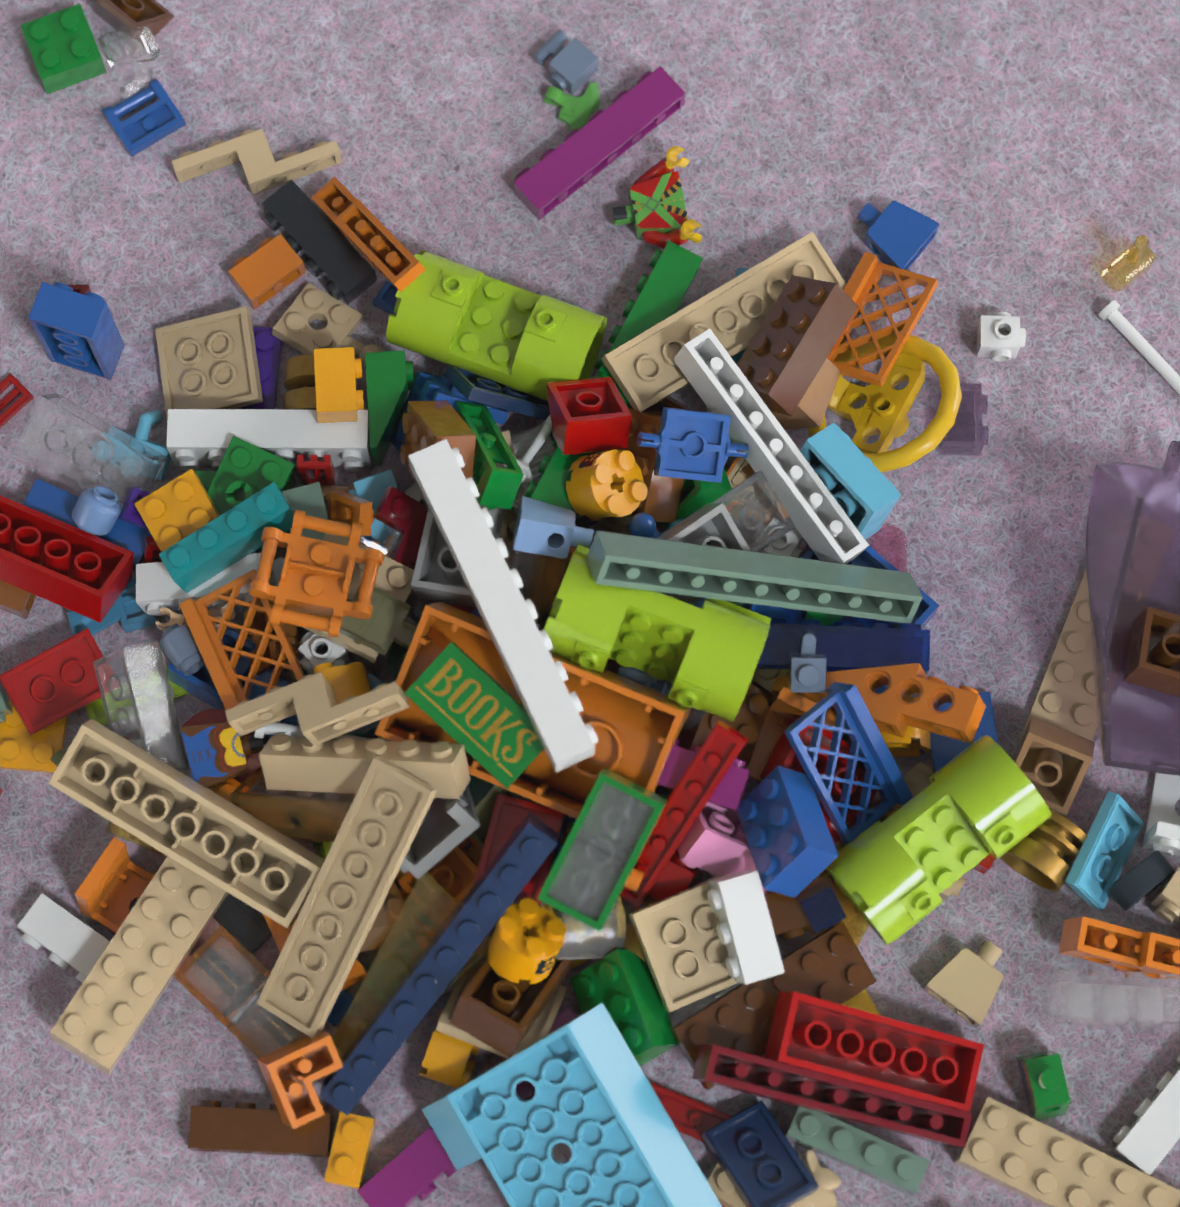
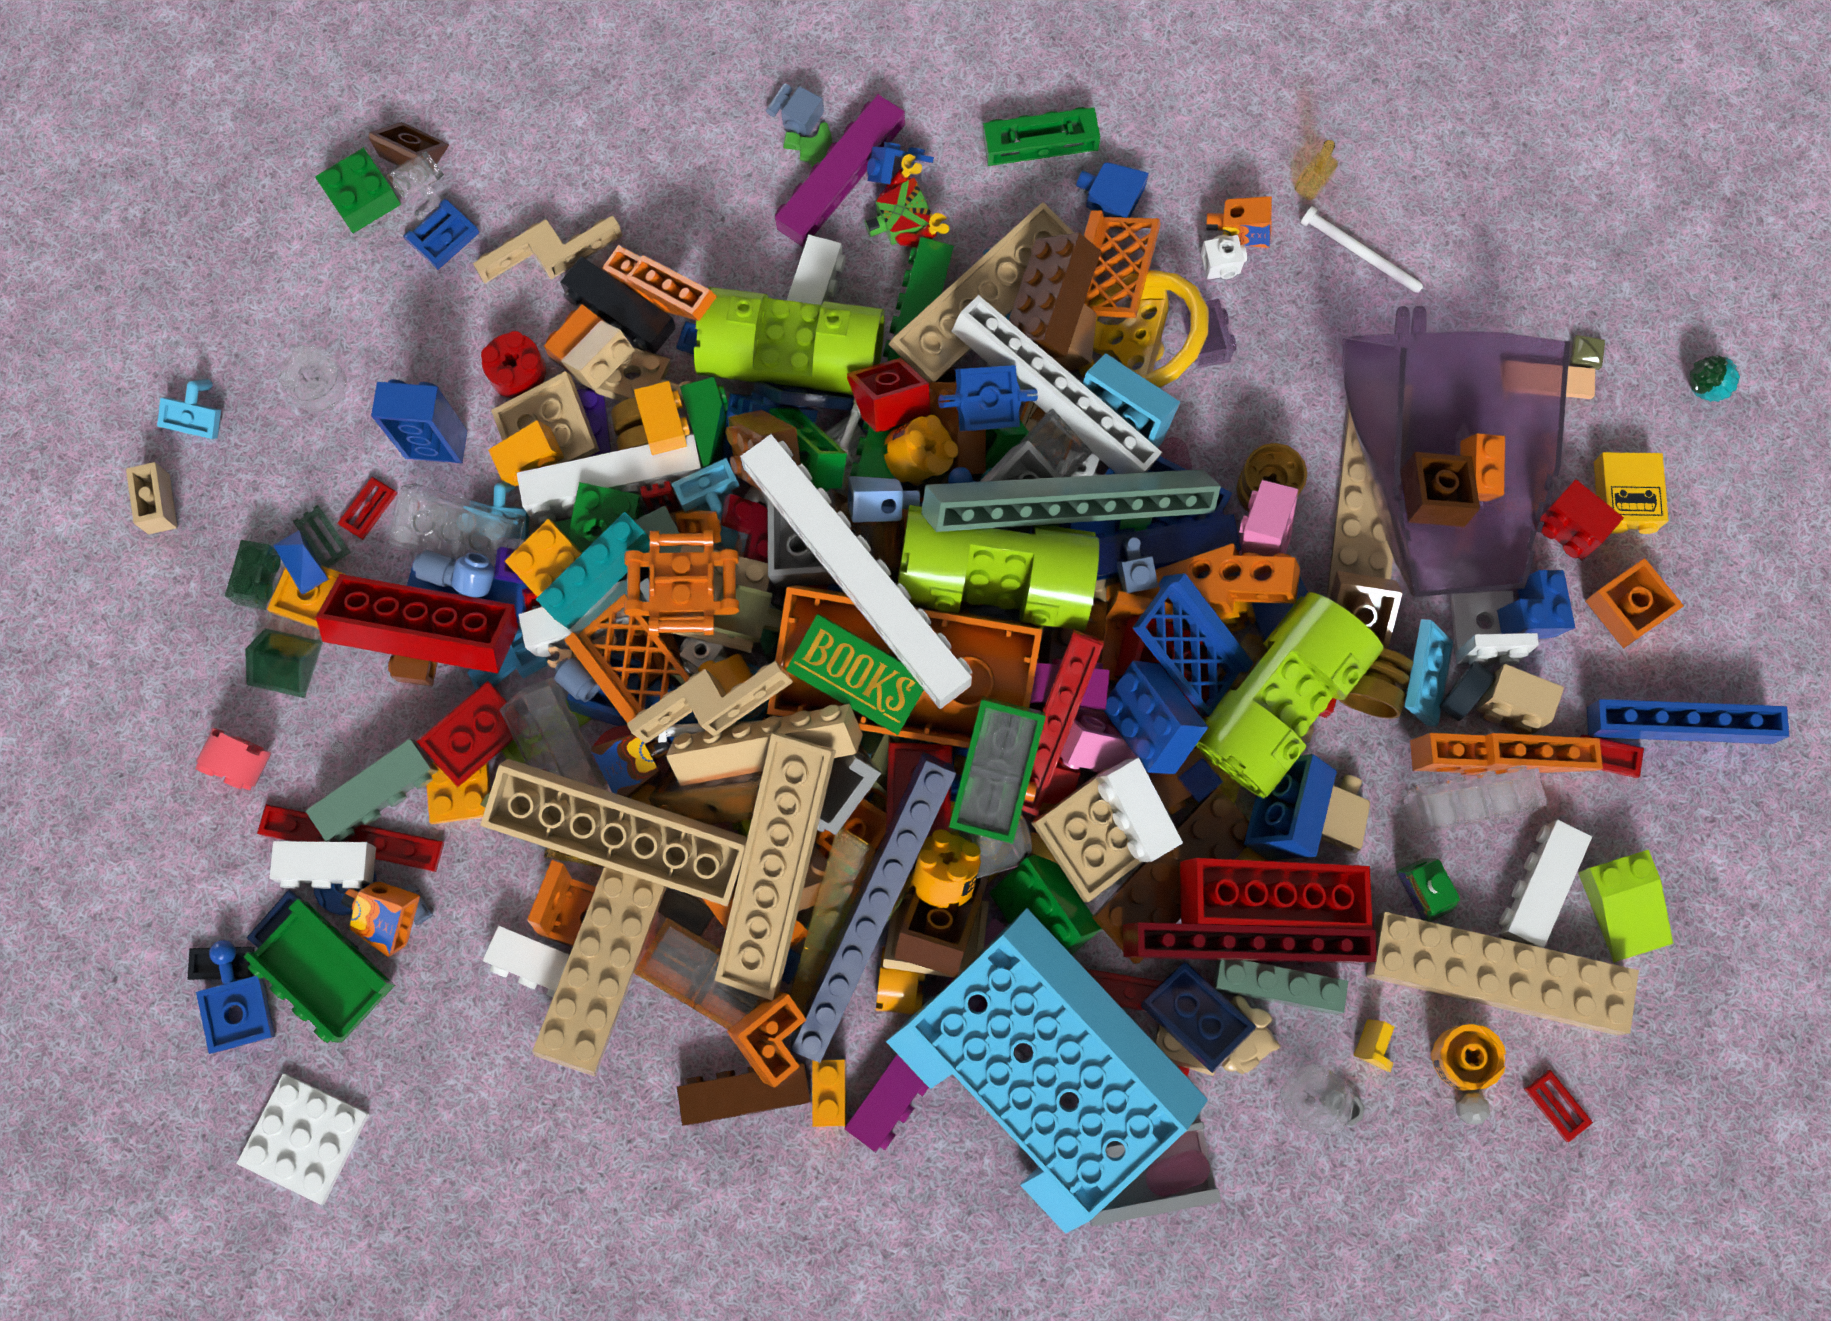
camera: 10 degrees left, 0 degrees up
(57, 493) = (434, 568): none -> sand blue brick
(183, 386) = (525, 450): none -> light orange brick
(186, 268) = (507, 352): none -> red brick
(284, 295) = (598, 355): none -> tan brick
(368, 470) = (706, 487): none -> medium azure plate
(545, 255) = (817, 271): none -> white brick
(646, 145) = (882, 161): none -> blue bracket
(786, 145) = (1041, 136): none -> green brick
(915, 968) = (1294, 813): none -> blue brick
(968, 649) = (1269, 521): none -> bright pink brick
(989, 582) = (1273, 464): none -> pearl gold wheel
(1035, 300) = (1246, 218): none -> orange torso

